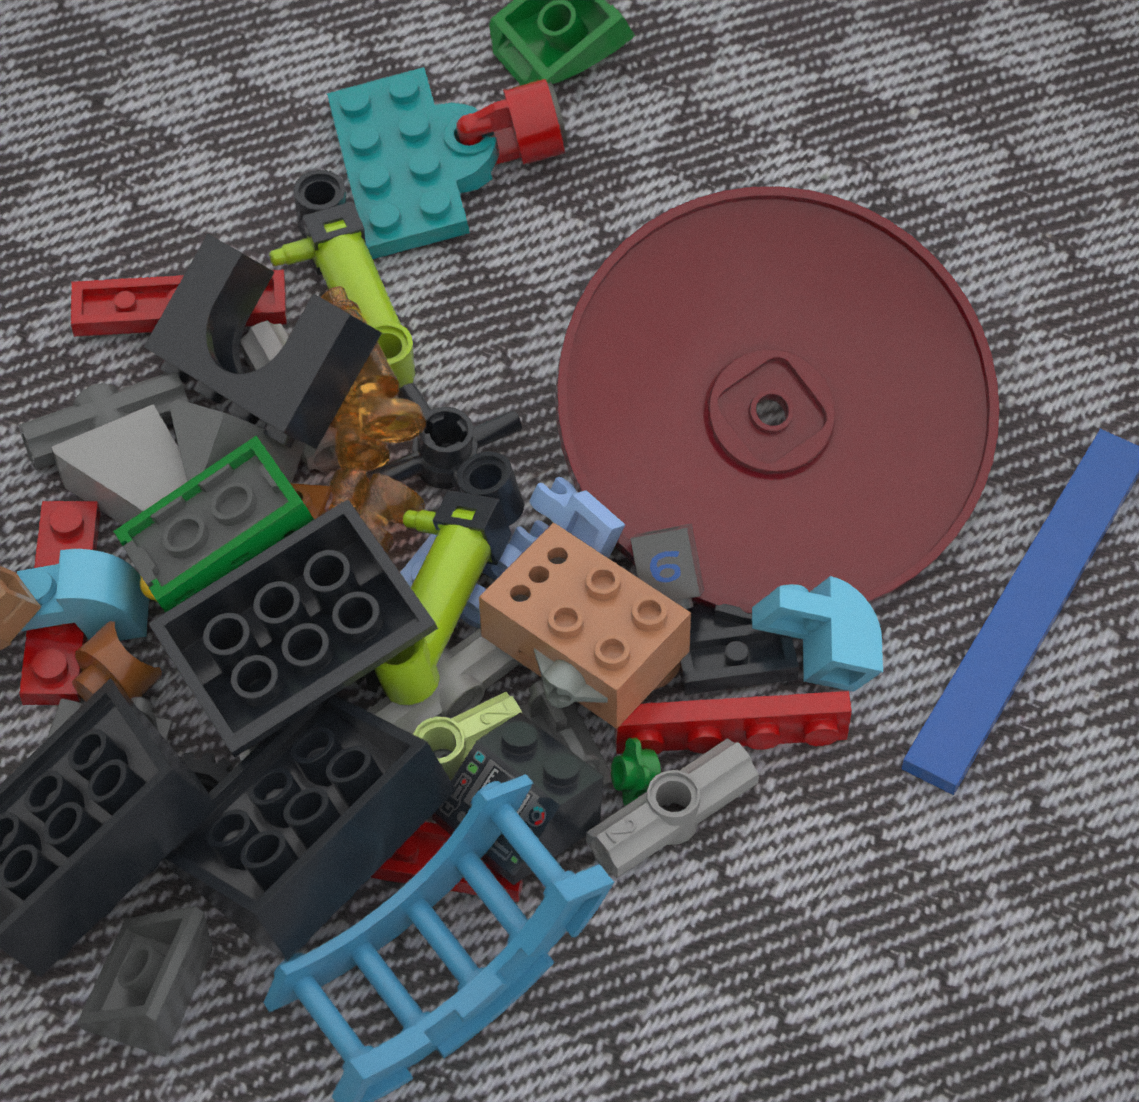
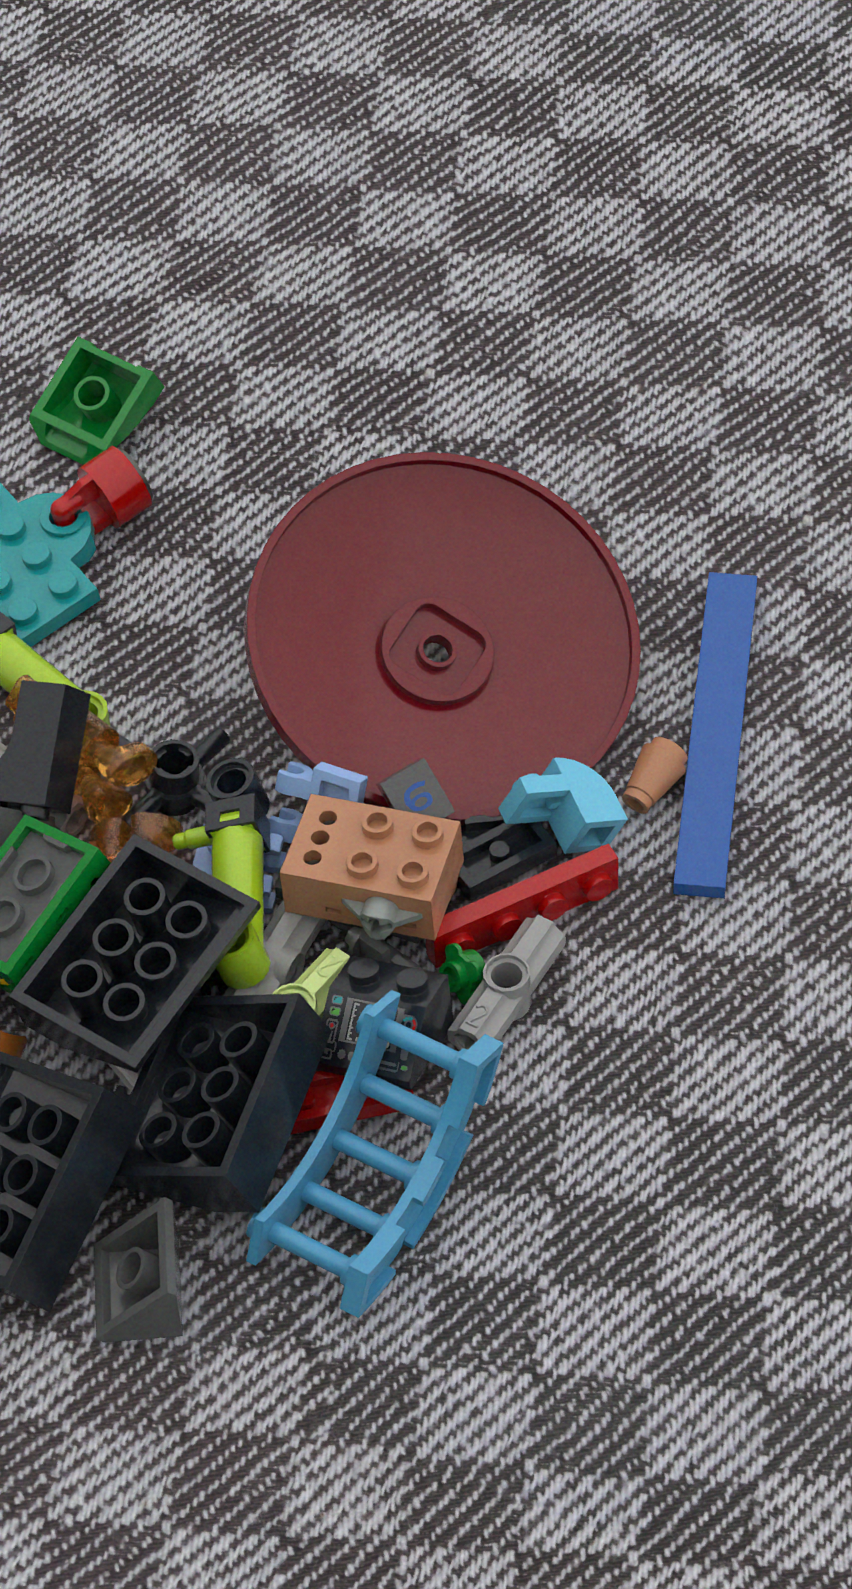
camera: 20 degrees left, 5 degrees down
(939, 629) = (654, 773): none -> nougat cone

